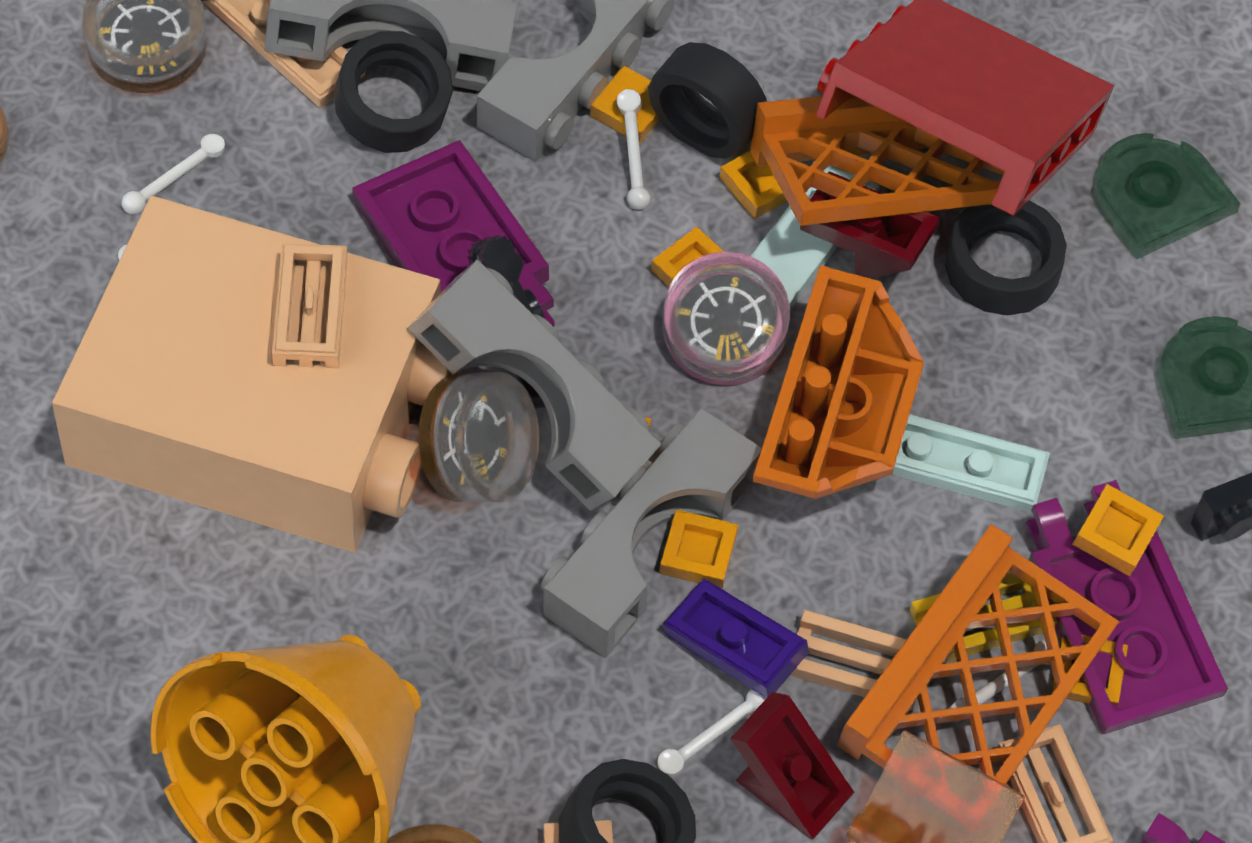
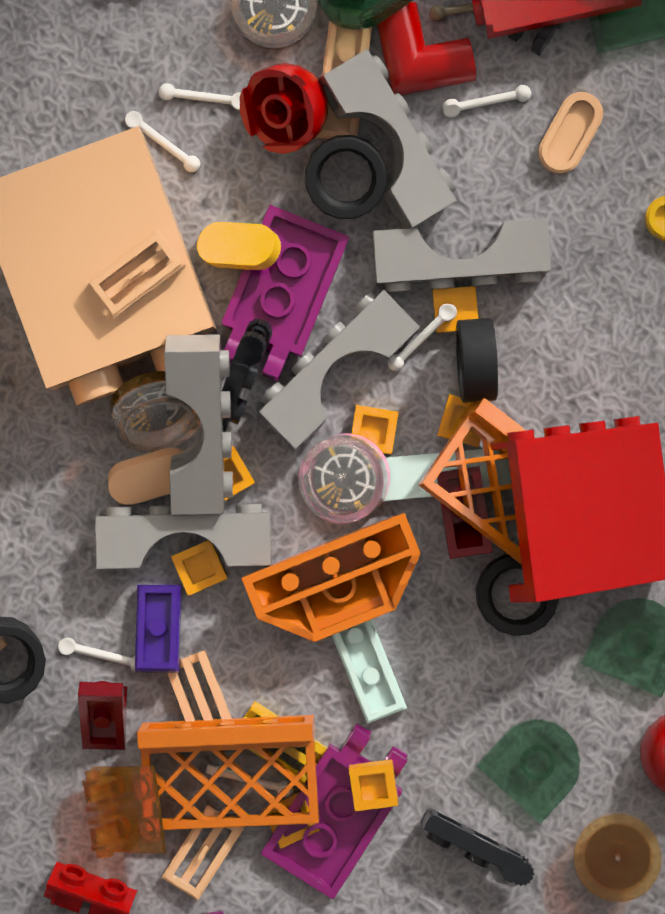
camera: 55 degrees right, 30 degrees up
(263, 84) = (284, 107): none -> red cylinder
(380, 224) = (239, 246): none -> yellow tile
(540, 524) = (142, 477): none -> light nougat tile
(604, 307) = (377, 329): none -> light grey arch

